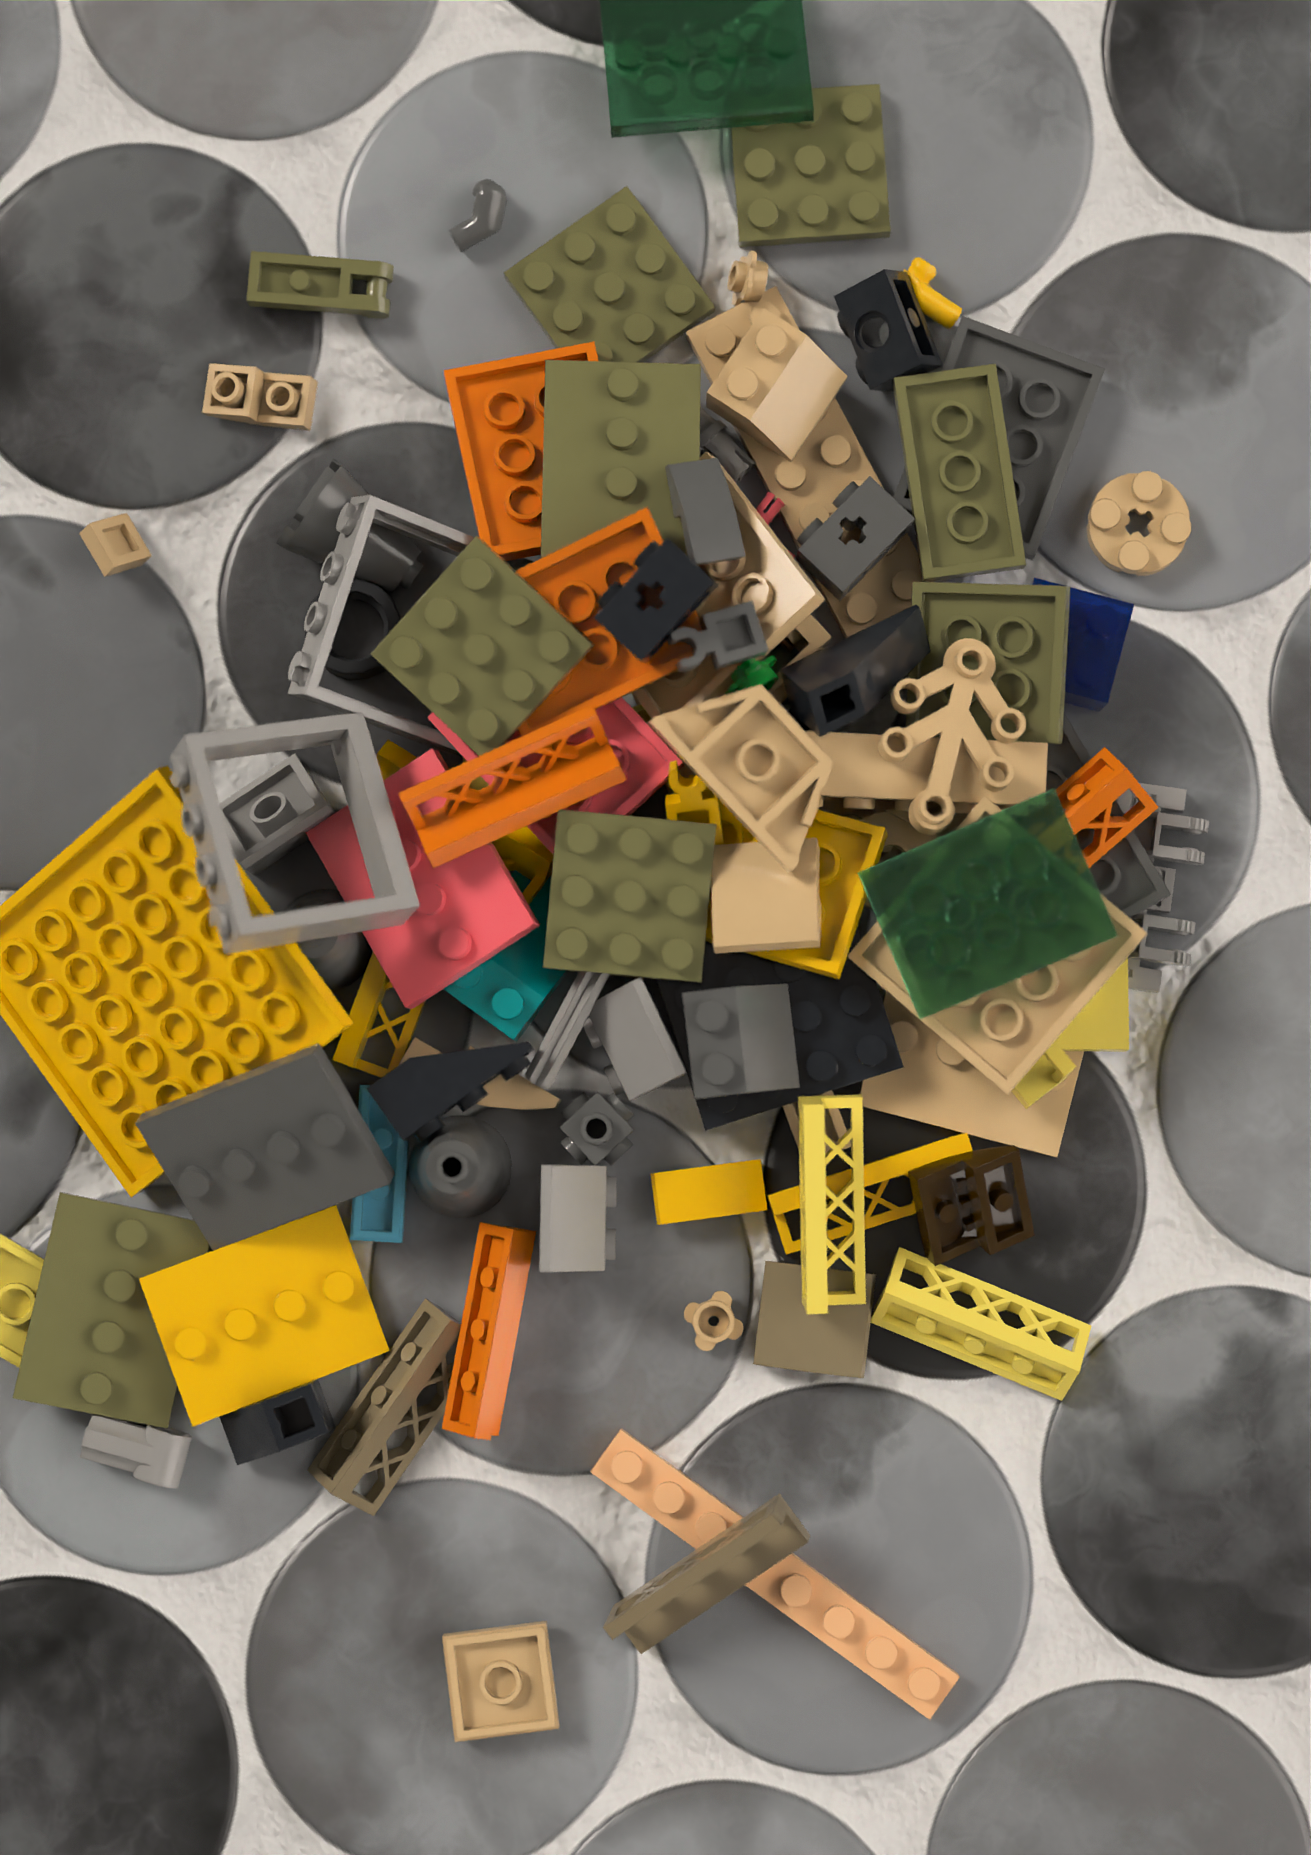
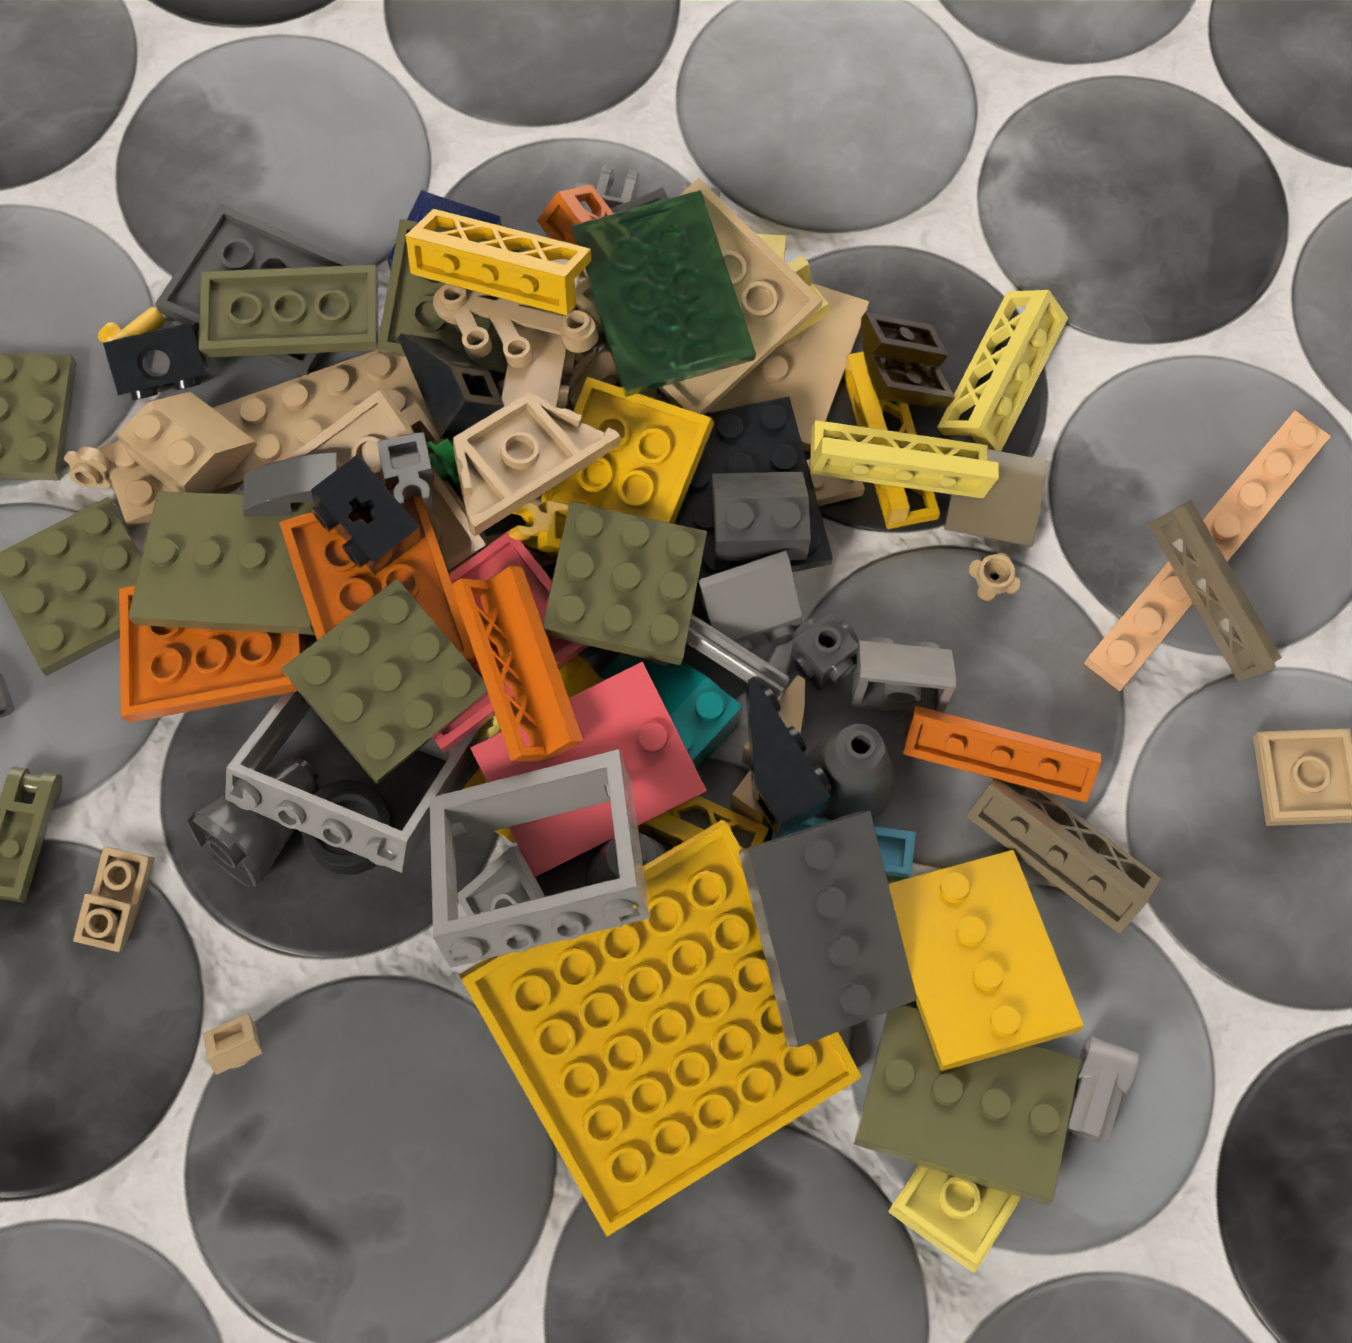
camera: 90 degrees left, 15 degrees down
(278, 1422) = (1082, 949): black slope -> none
(708, 1191) = (883, 569): yellow slope -> none
(763, 904) = (643, 472): tan slope -> none
(881, 526) = (319, 373): dark grey brick -> none
(991, 705) = (491, 264): none -> yellow fence
(1146, 495) = (351, 177): tan plate -> none

